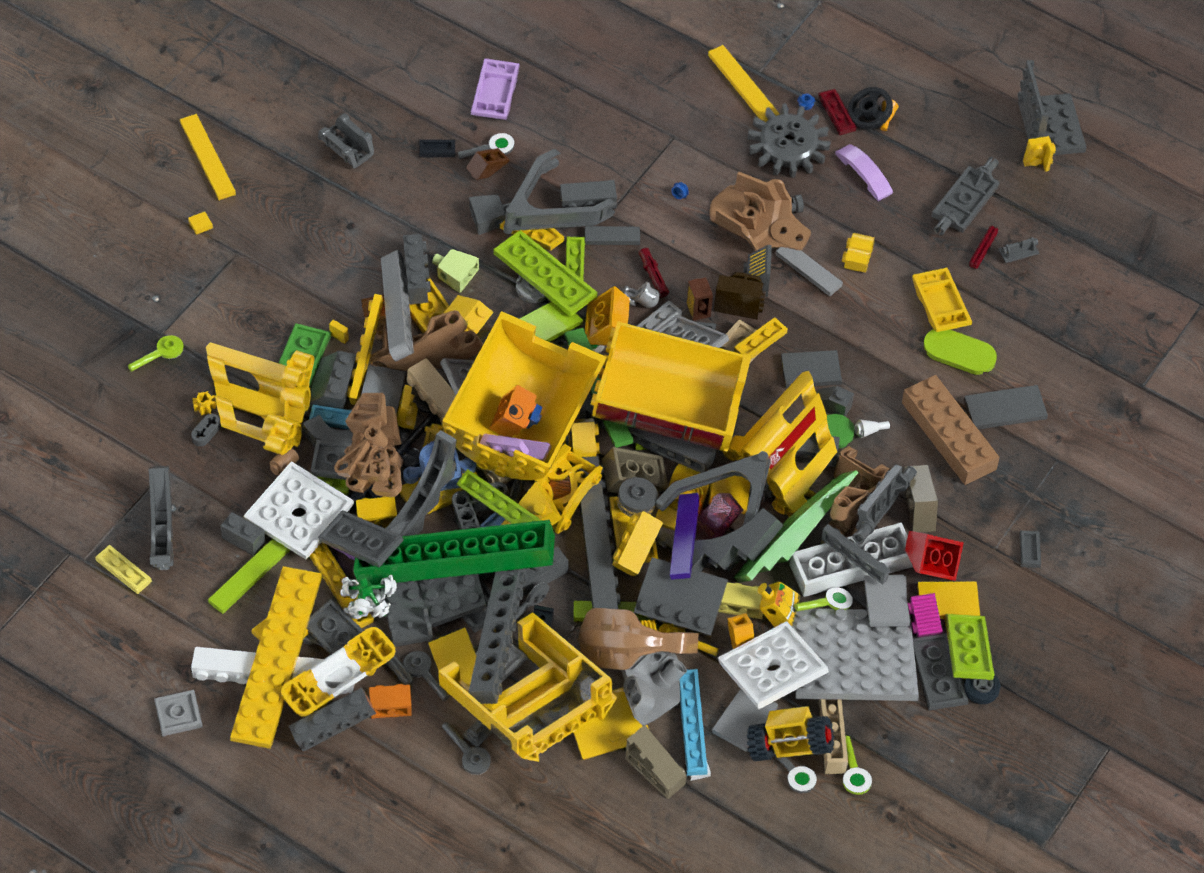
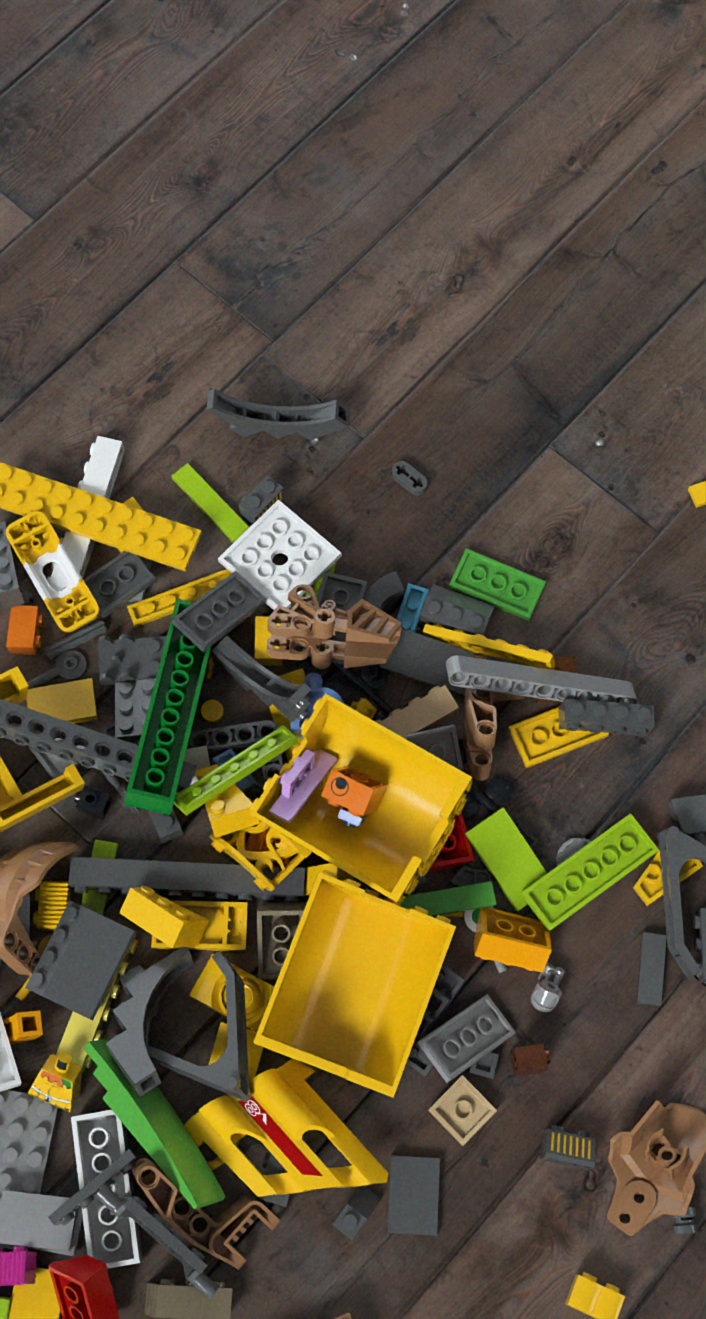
camera: 100 degrees right, 15 degrees up
(123, 569) = (248, 382): light yellow tile -> none
(167, 347) = (527, 450): lime piece -> none
(178, 712) = (58, 427): light grey tile -> none
(204, 403) = (442, 483): yellow gear -> none
(280, 399) = (436, 551): yellow panel -> none
(280, 462) = (353, 551): medium nougat brick -> none
(339, 331) = (527, 626): yellow tile -> none
(368, 596) = (146, 607): white plant -> none
(407, 409) = (401, 686): yellow bracket -> none
(456, 268) = (608, 768): yellowish green torso -> none
(472, 311) = (528, 766): yellow slope -> none
(575, 255) = (614, 916): lime tile -> none
(637, 496) = (233, 931): dark grey piece -> none
(650, 265) = (613, 1006): dark red pin -> none
(660, 317) = (508, 1003): light grey tile -> none
(684, 536) = (158, 976): dark purple tile -> none
(719, 515) = (195, 1030): clear pink brick -> none
(740, 295) = (529, 1116): dark brown brick -> none
(761, 338) = (454, 1130): yellow plate -> none
(810, 270) = (575, 1226): light grey tile -> none
(835, 598) = (60, 1159): piece -> none
(841, 427) = (312, 1210): bright green tile -> none
(864, 428) = (308, 1251): white cone -> none

